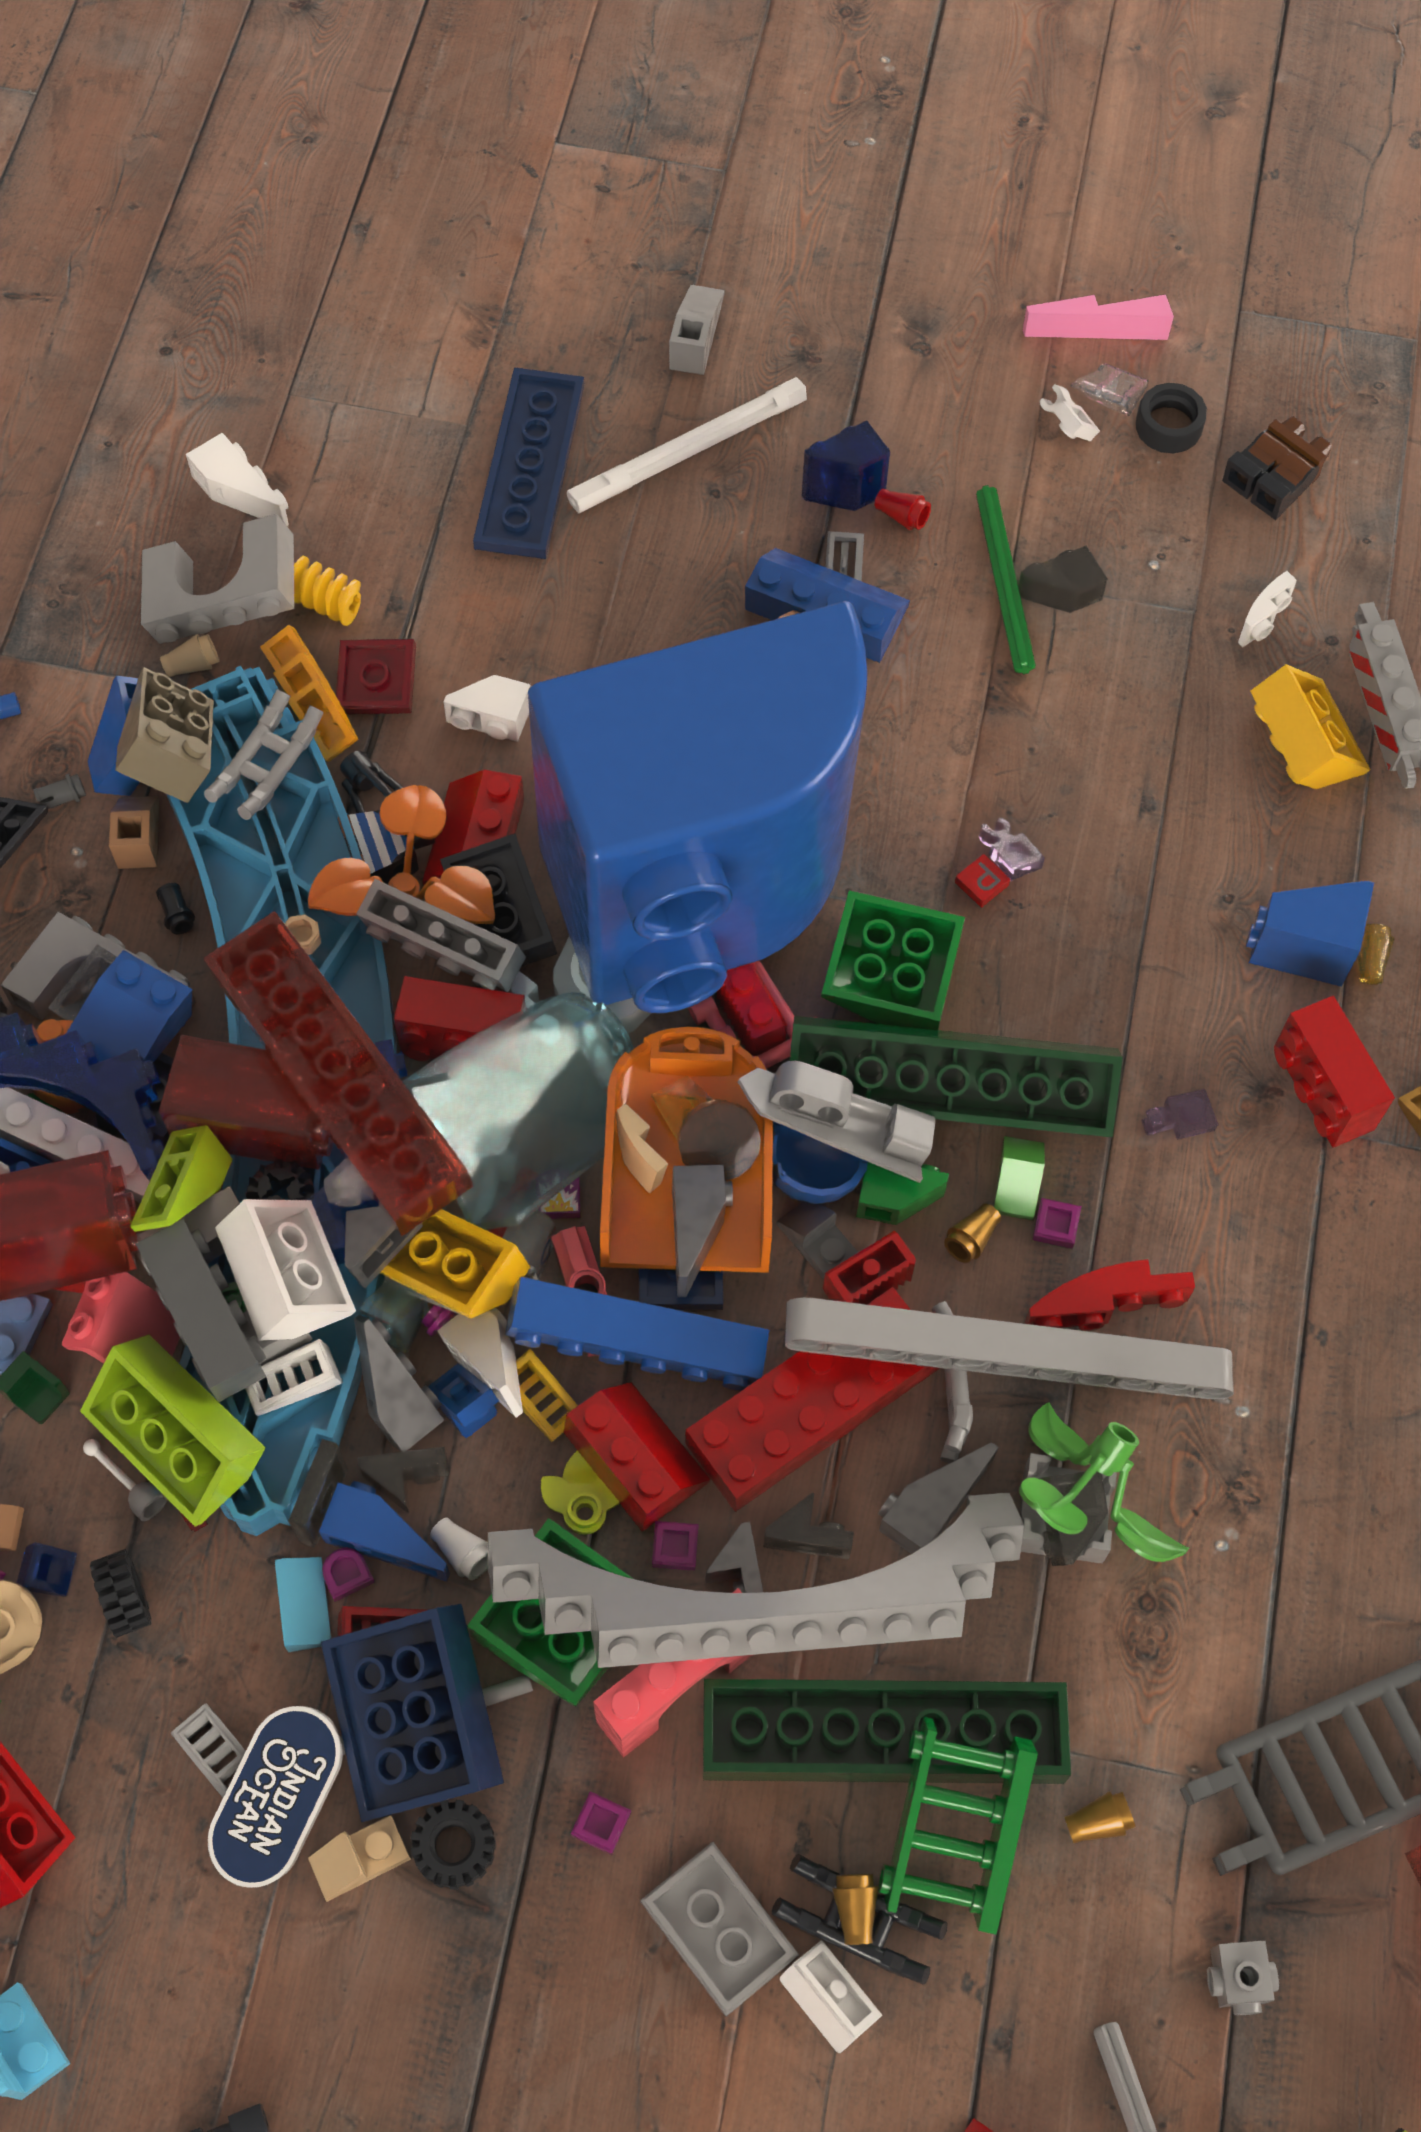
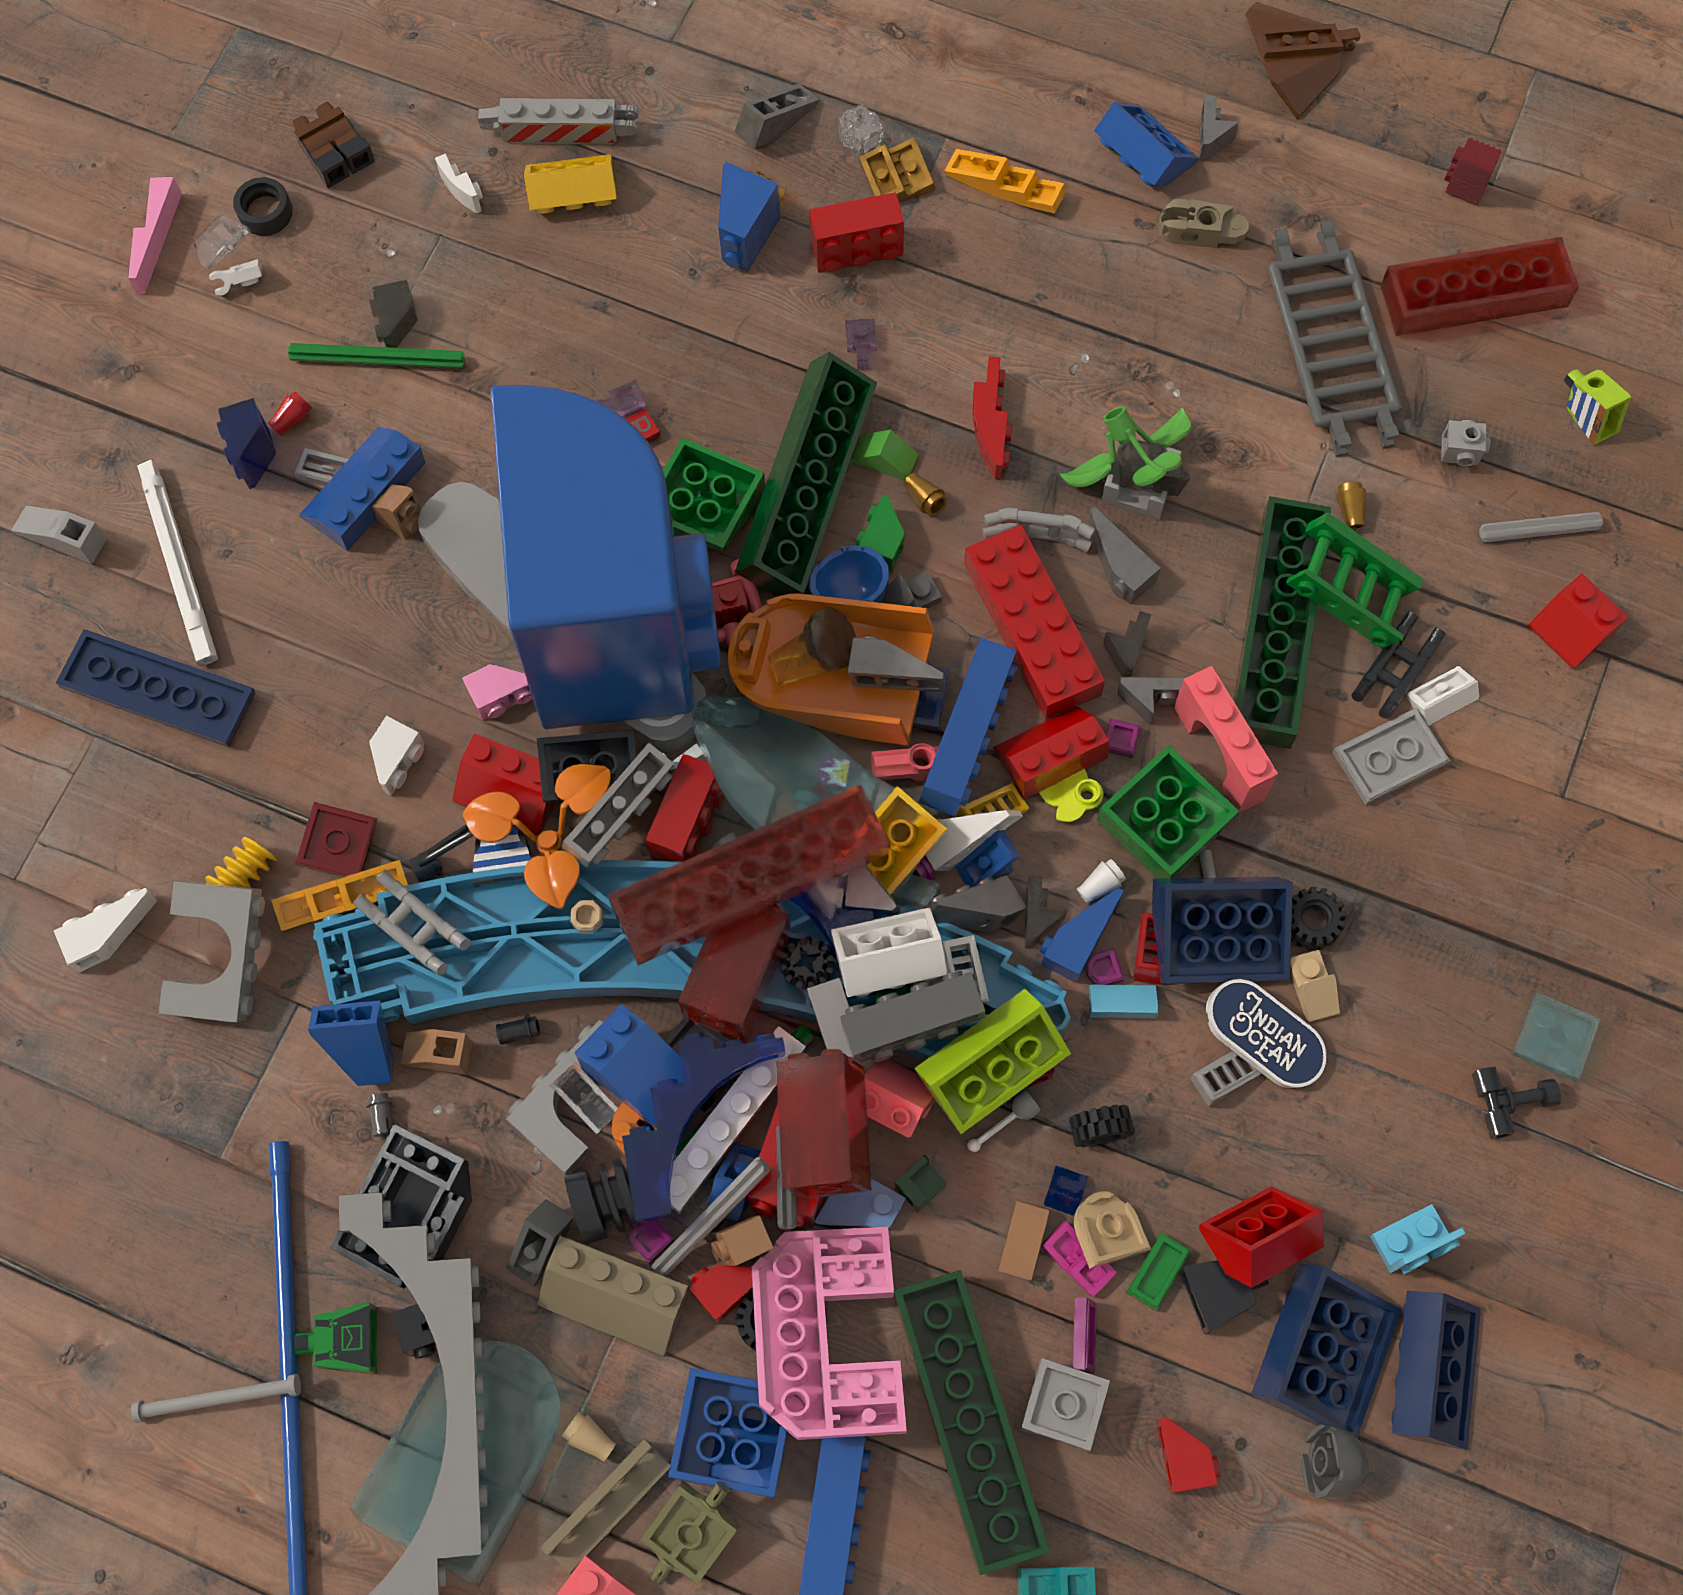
camera: 75 degrees left, 5 degrees up
(166, 736) = (381, 993): dark tan slope -> none
(184, 1178) = (800, 1020): lime slope -> none
(191, 656) = (274, 990): tan cone -> none
(316, 1493) = (1048, 967): clear smoke tile -> none
(601, 1823) = (1310, 820): magenta tile -> none
(637, 1155) = (833, 697): tan slope -> none
(658, 1624) = (1210, 732): light grey arch -> none
(829, 1111) = (826, 557): light grey panel -> none
(856, 1906) = (1392, 660): pearl gold cone -> none
(871, 1271) = (948, 564): red brick -> none
(1007, 1348) = (1029, 482): light grey beam -> none
(1056, 1223) = (926, 440): magenta tile -> none

